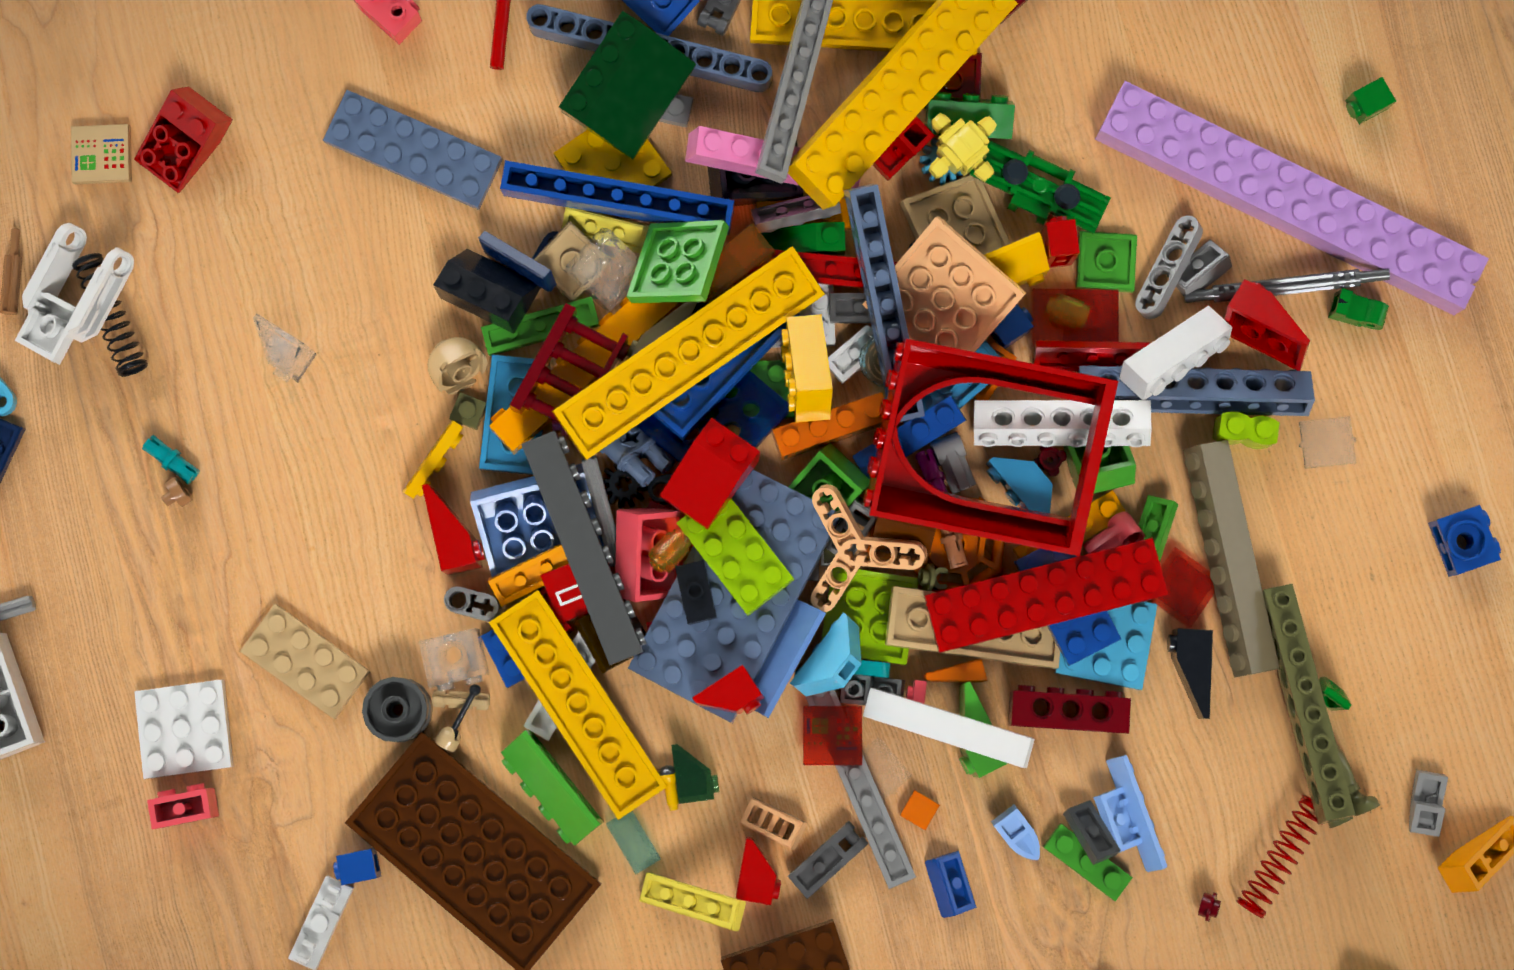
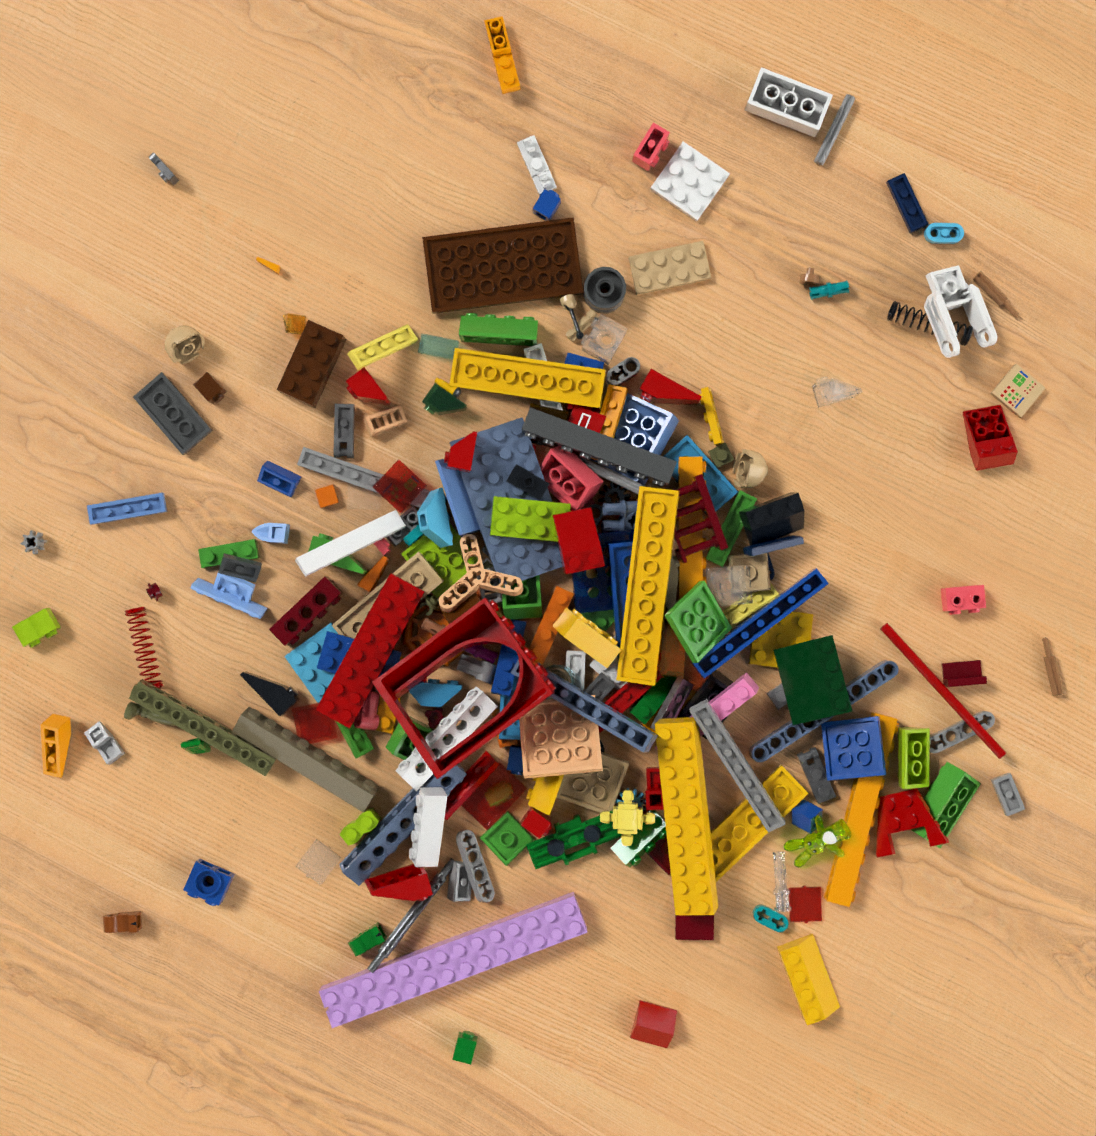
camera: 140 degrees right, 5 degrees up
(412, 149) = (879, 546): sand blue plate -> none
(669, 551) = (559, 487): clear yellow brick -> none

